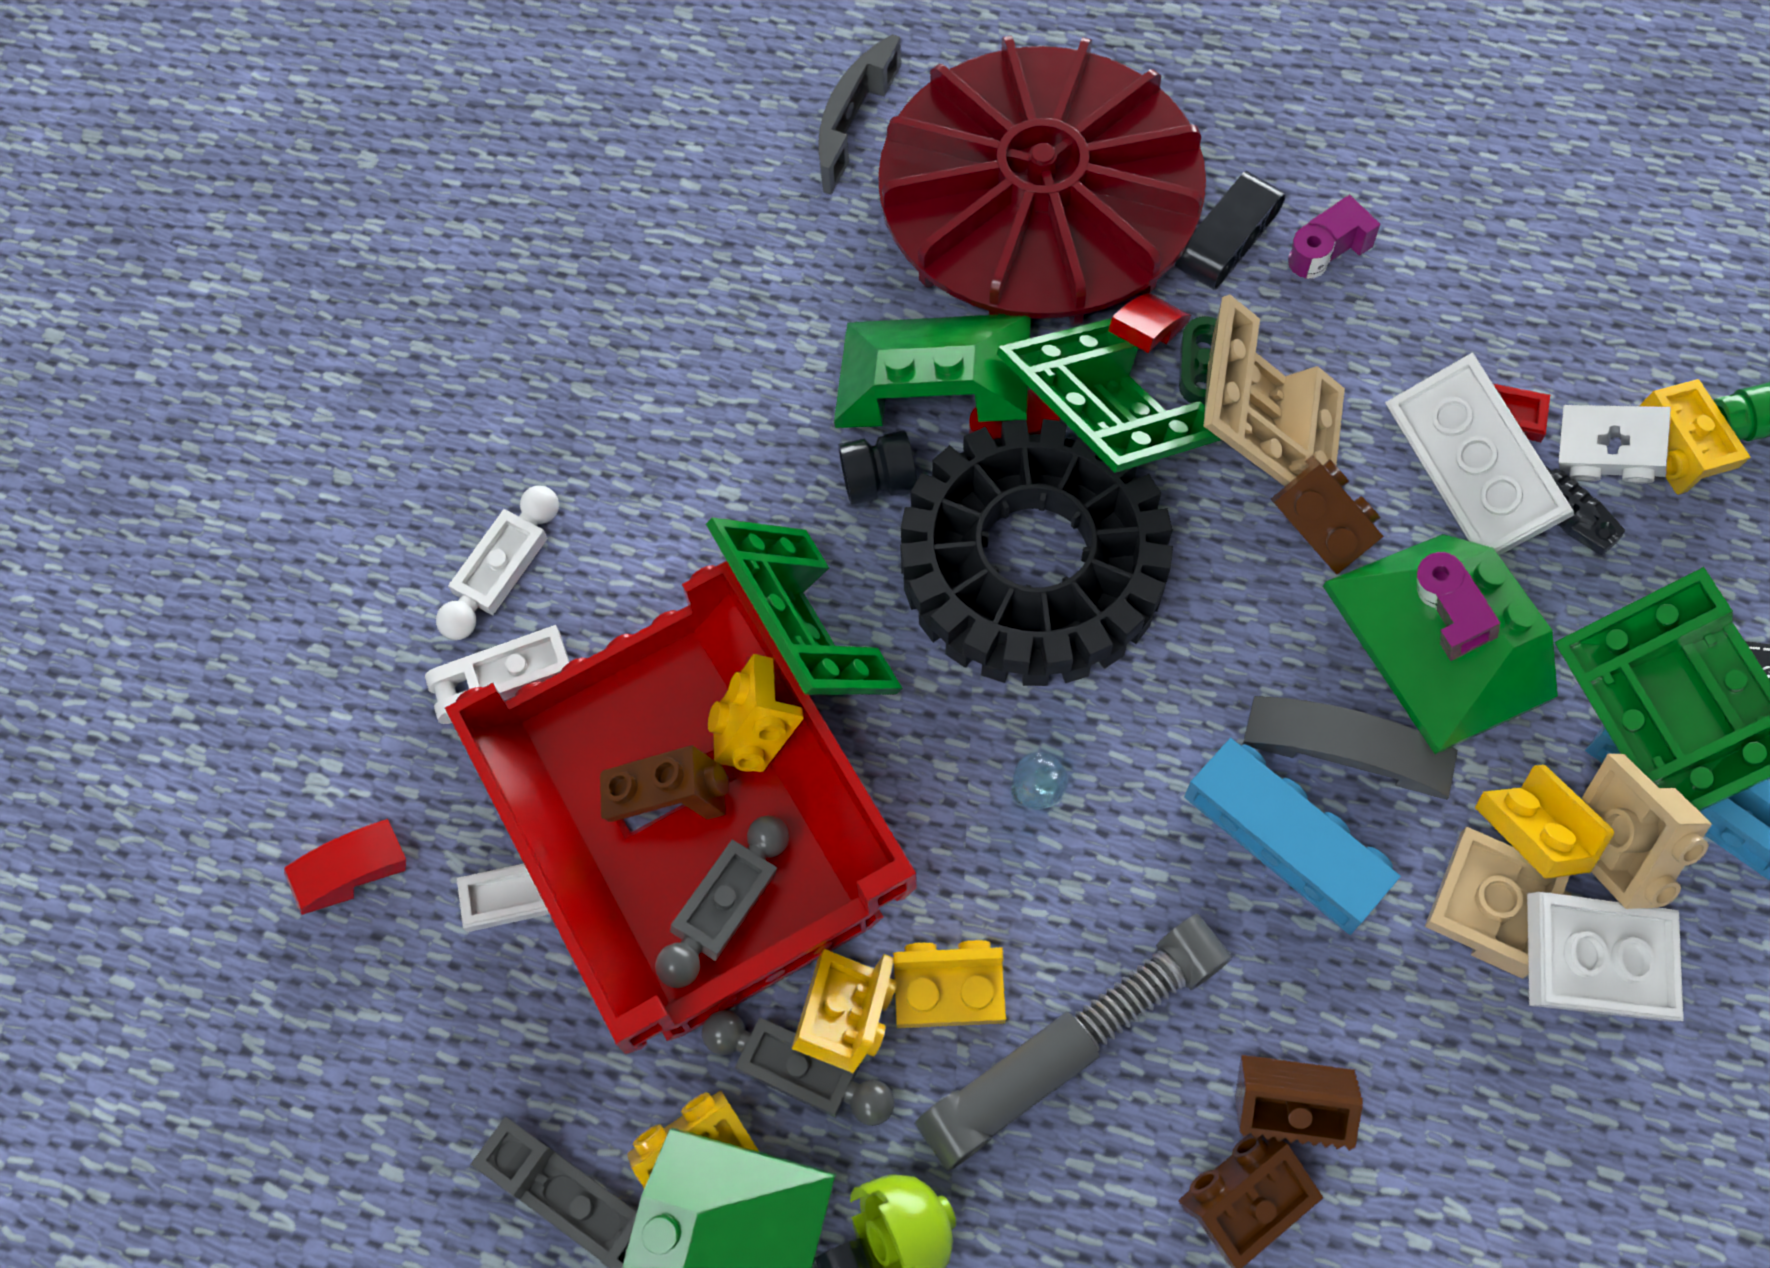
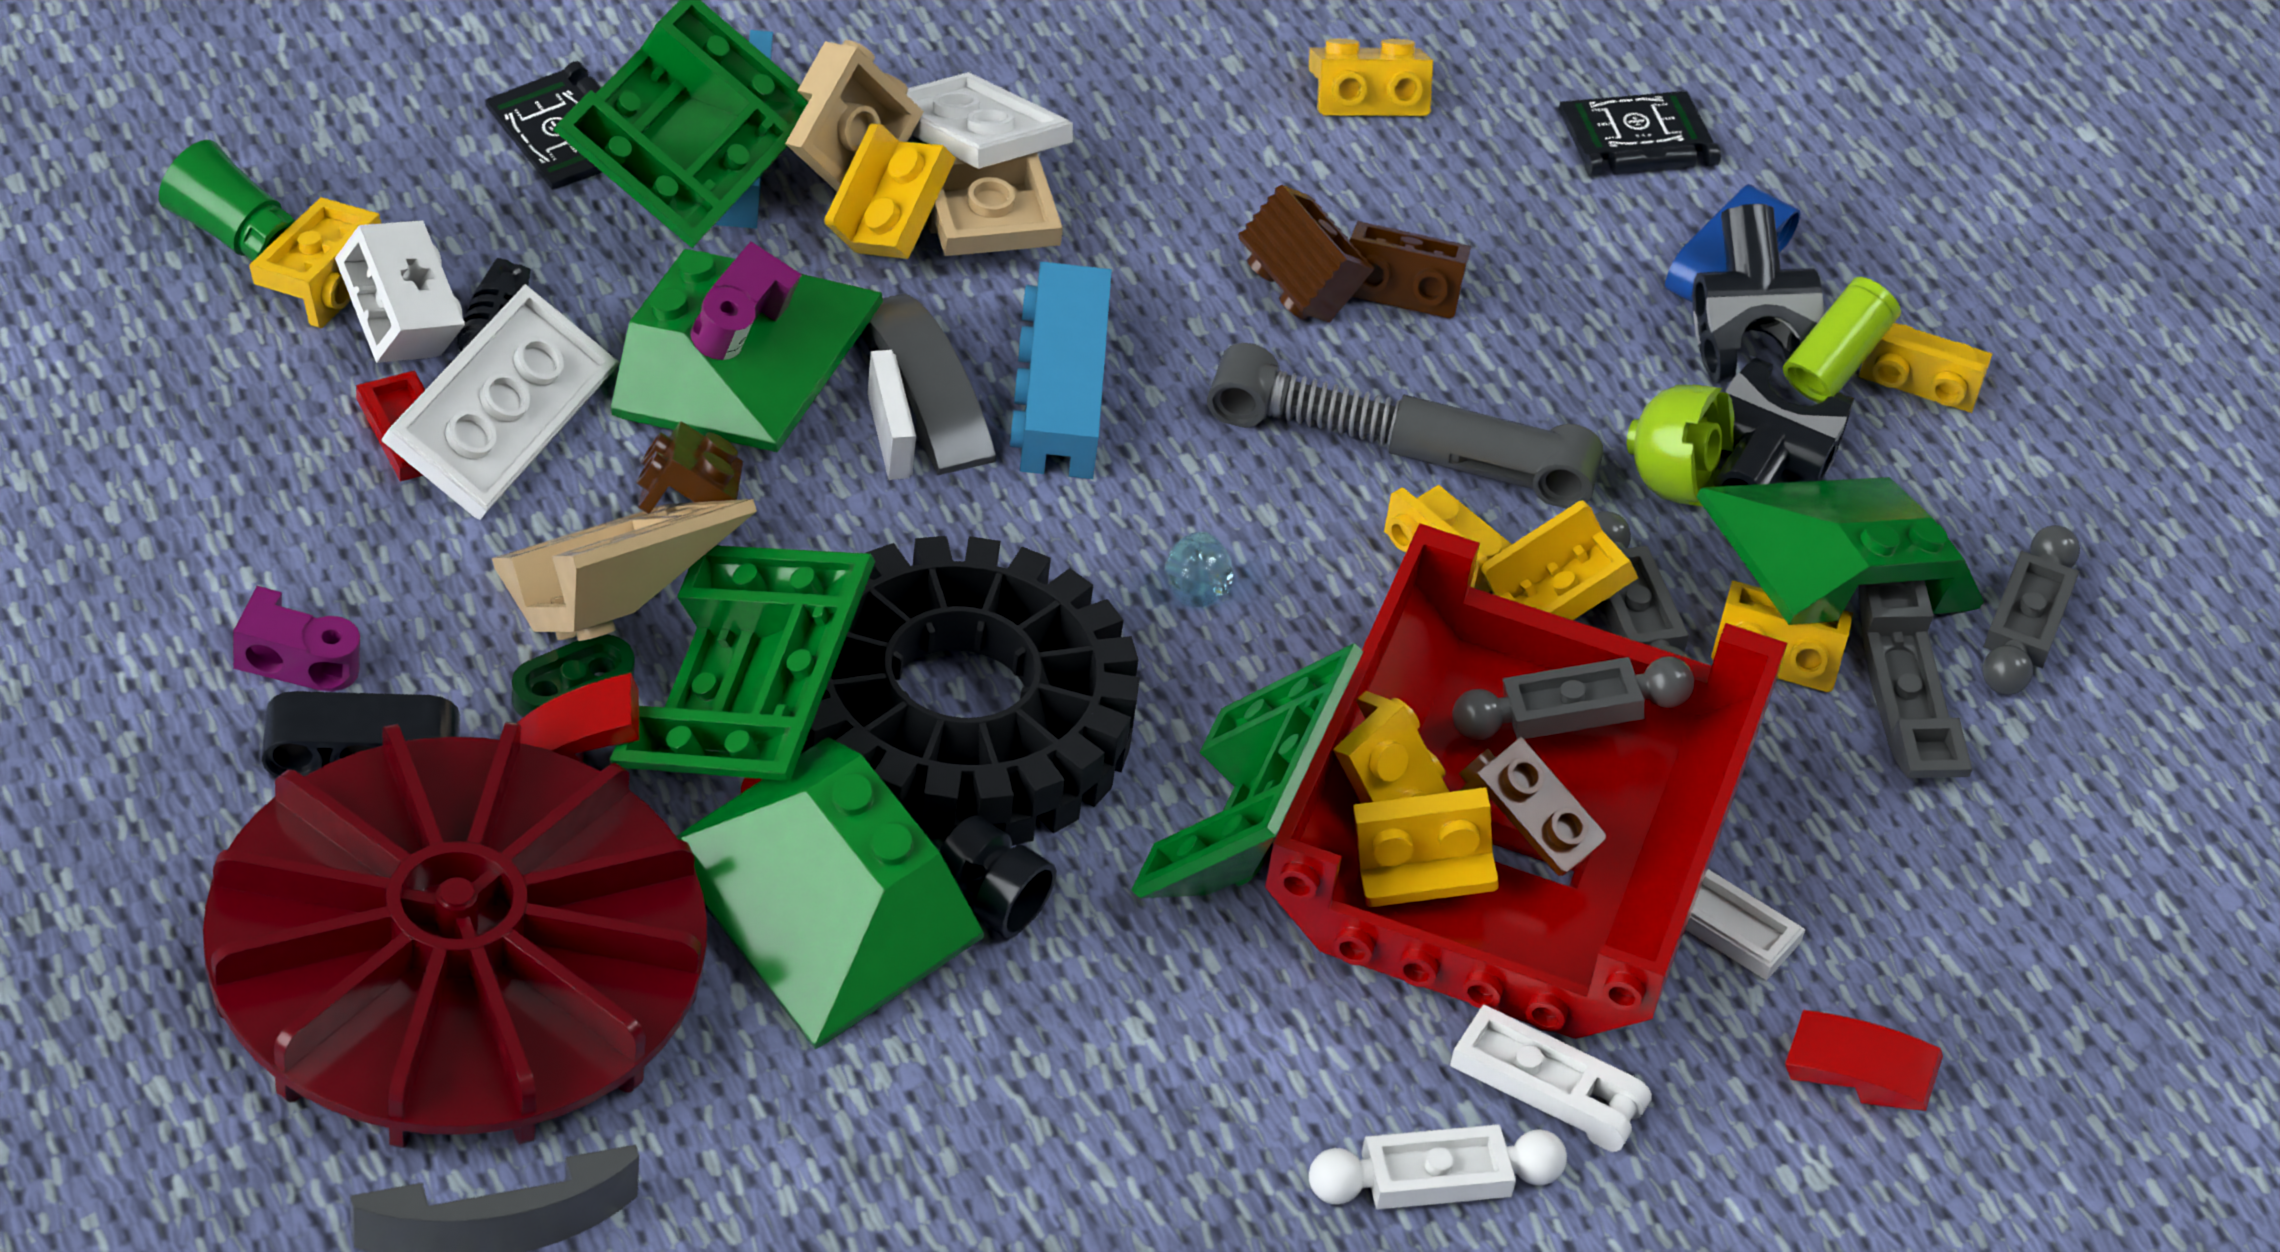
camera: 140 degrees left, 20 degrees down
(682, 698) = (1425, 847): none -> yellow bracket
(1314, 683) = (891, 414): none -> white tile

